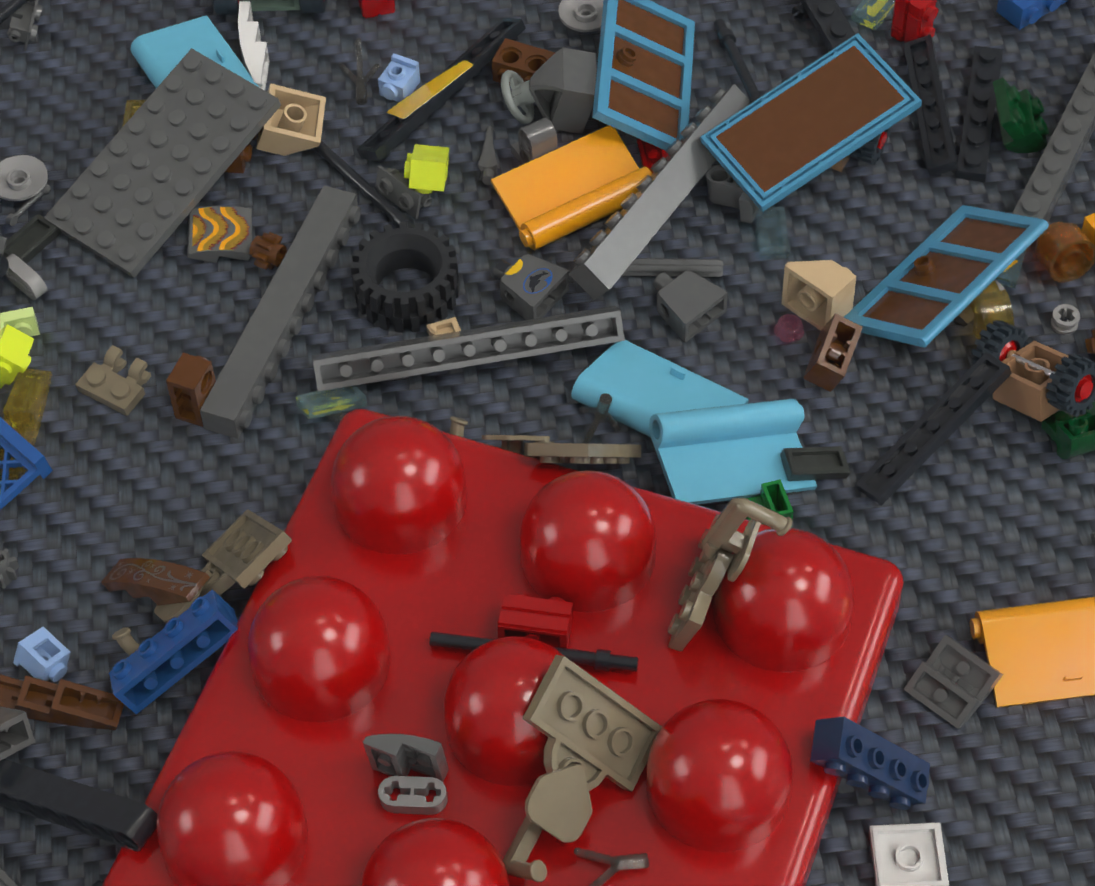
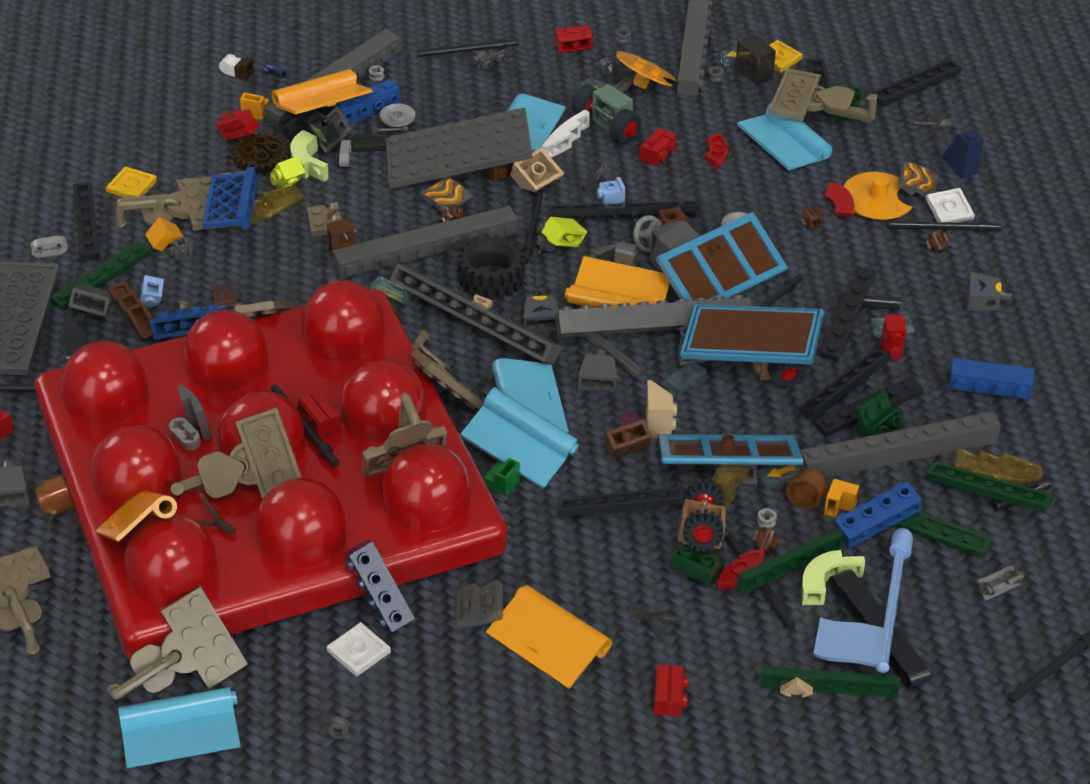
camera: 45 degrees right, 10 degrees down
(429, 90) = (621, 204): yellow sticker -> none
(815, 463) = (554, 476): pearl dark grey tile -> none

